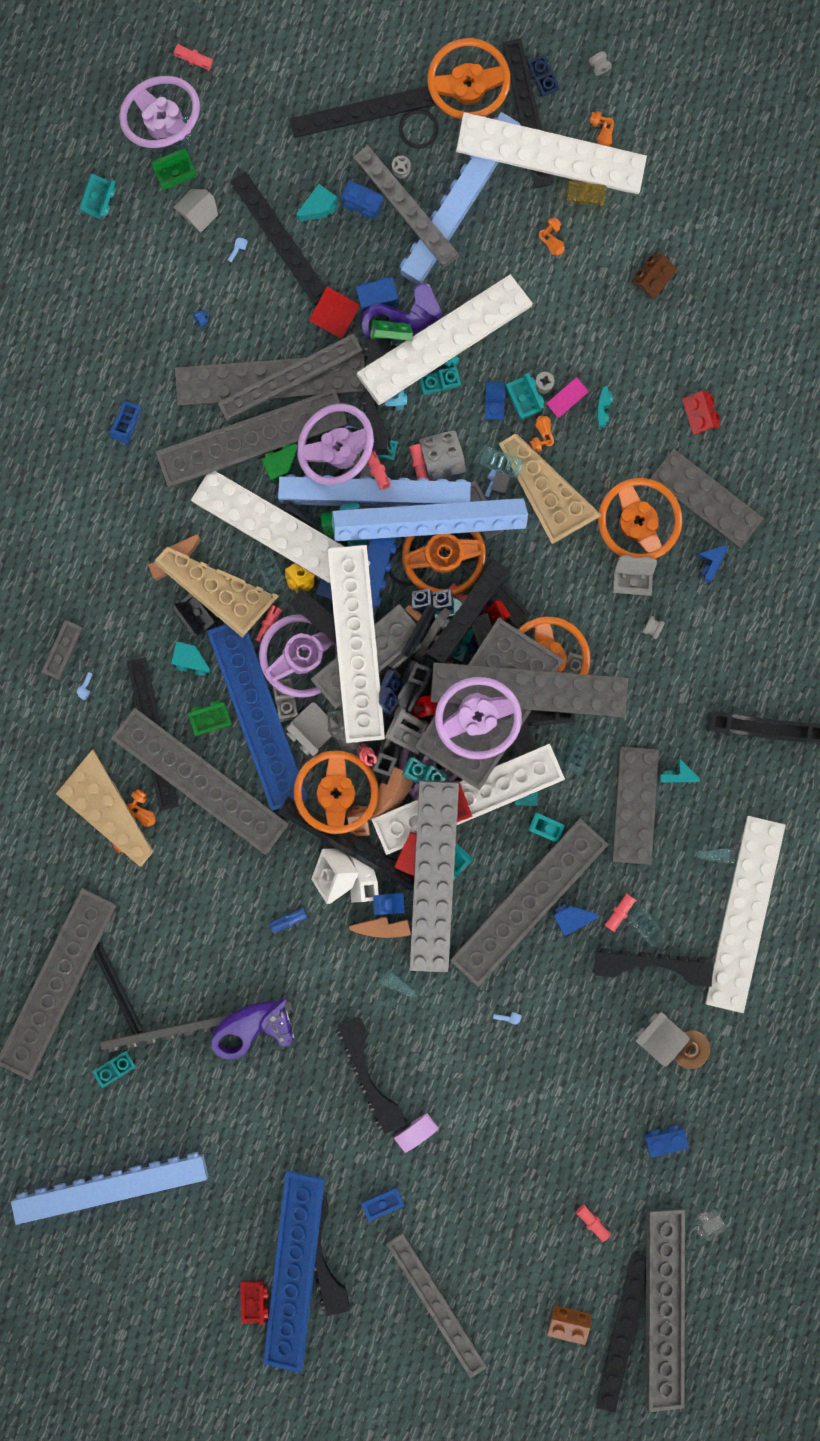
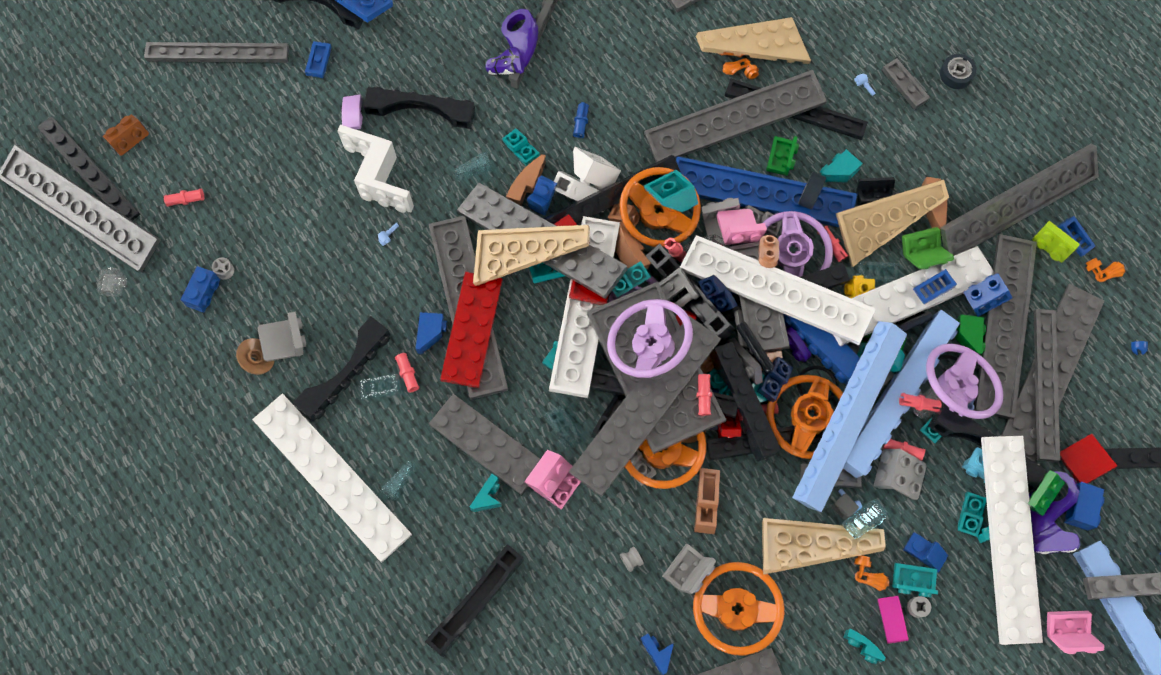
camera: 120 degrees right, 15 degrees down
(9, 605) = (963, 76): none -> wheel
(125, 484) = (1020, 201): none -> flat silver plate
(139, 372) = (1116, 269): none -> orange piece
(150, 430) = (1055, 242): none -> lime plate
(226, 540) = (925, 248): none -> bright green bracket
(236, 669) = (812, 190): none -> black wheel
(237, 467) = (987, 294): none -> brick
(249, 506) = (946, 278): none -> blue slope
(310, 712) = (740, 226): none -> bright pink bracket
(321, 787) = (673, 191): none -> teal slope
(324, 671) = (768, 251): none -> nougat plate
(349, 956) = (520, 147): none -> teal slope
(389, 595) = (798, 347): none -> dark purple plate
(460, 1068) = (375, 169): none -> white bracket
(463, 890) = (511, 250): none -> tan wing
(490, 254) = (1072, 631): none -> bright pink bracket
(491, 646) = (704, 395): none -> coral pin
(546, 827) = (519, 354): teal slope -> none
(549, 882) = (471, 332): none -> red plate
(566, 596) = (707, 501): none -> nougat slope
(631, 732) = (552, 479): none -> bright pink slope
(637, 1139) = (219, 265): none -> light grey wheel

